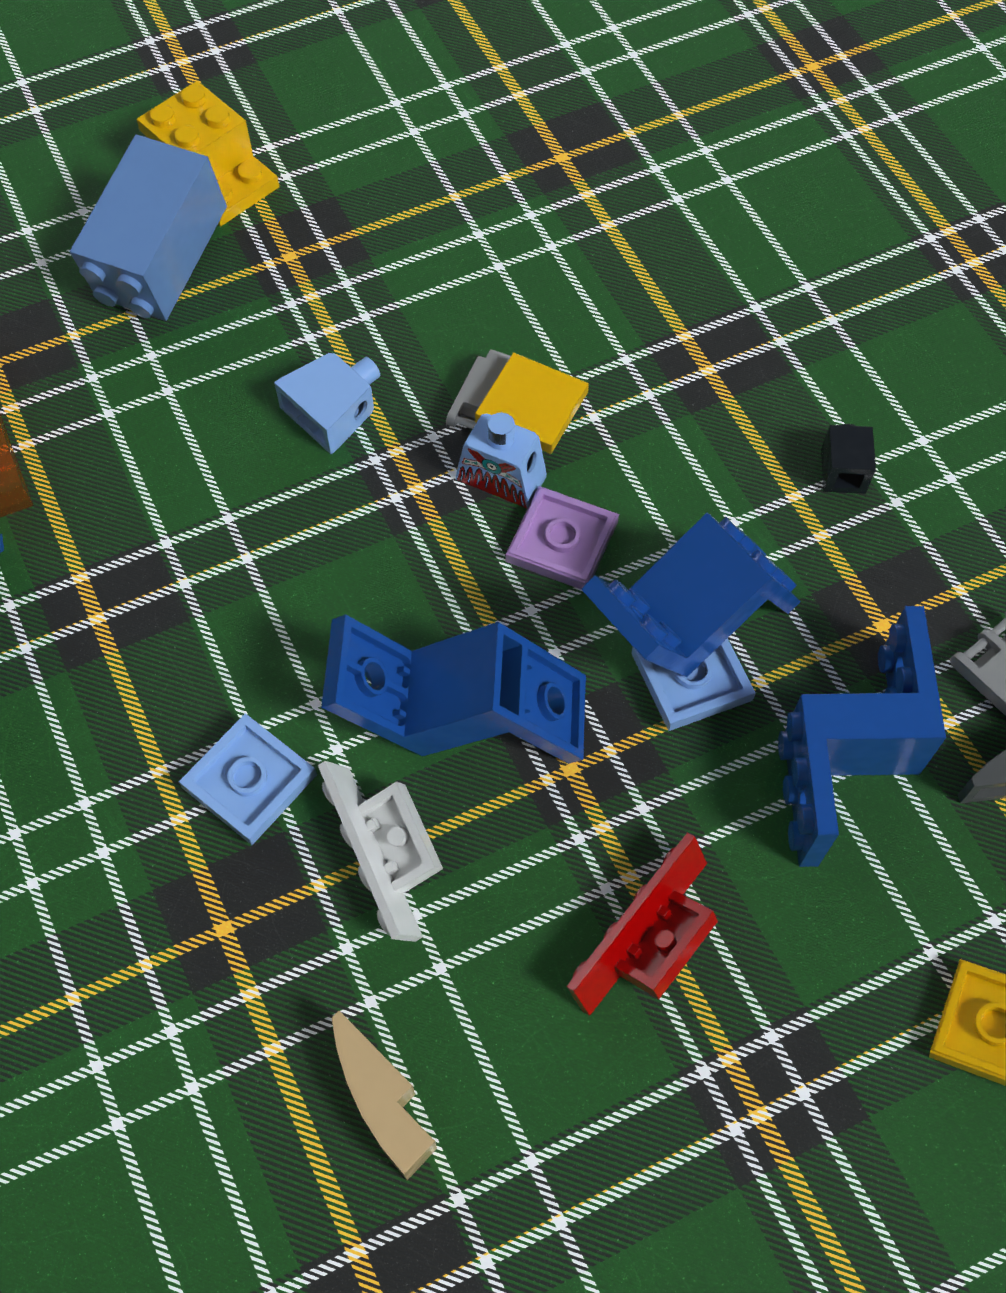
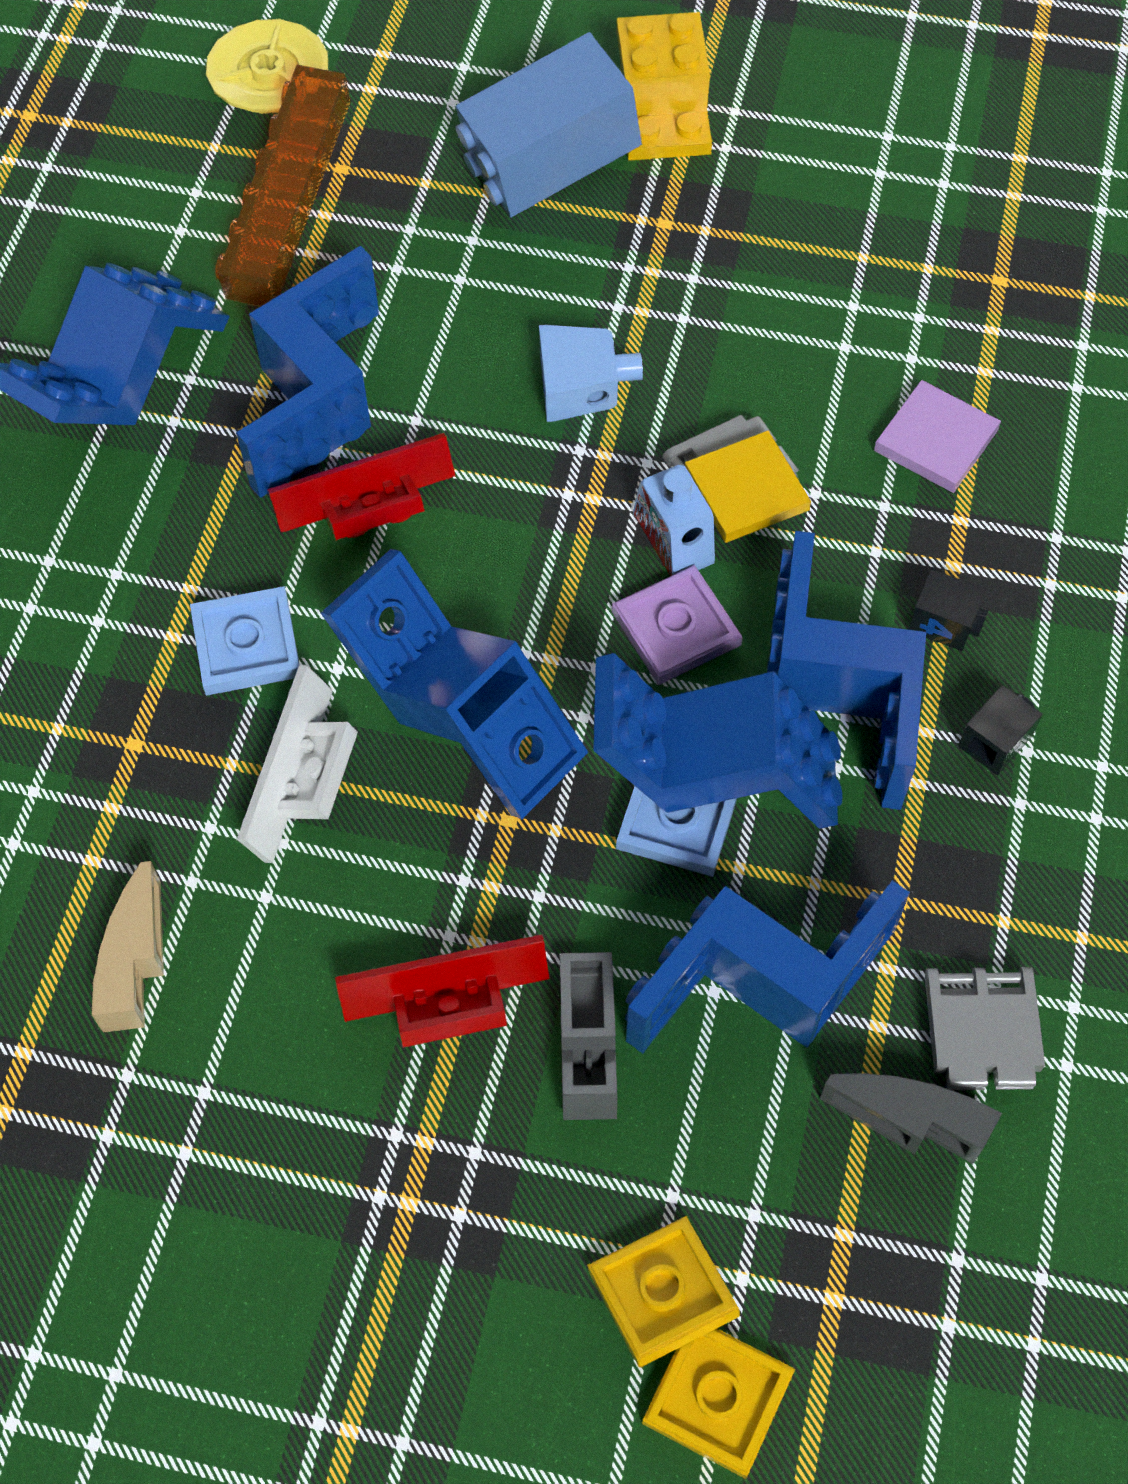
camera: 40 degrees right, 0 degrees up
(121, 531) = (301, 357): none -> blue bracket
(243, 598) = (366, 490): none -> red bracket
(620, 287) = (937, 436): none -> lavender tile
(725, 480) = (850, 670): none -> blue bracket
(740, 400) = (949, 610): none -> black brick
(779, 883) = (588, 1036): none -> dark grey slope

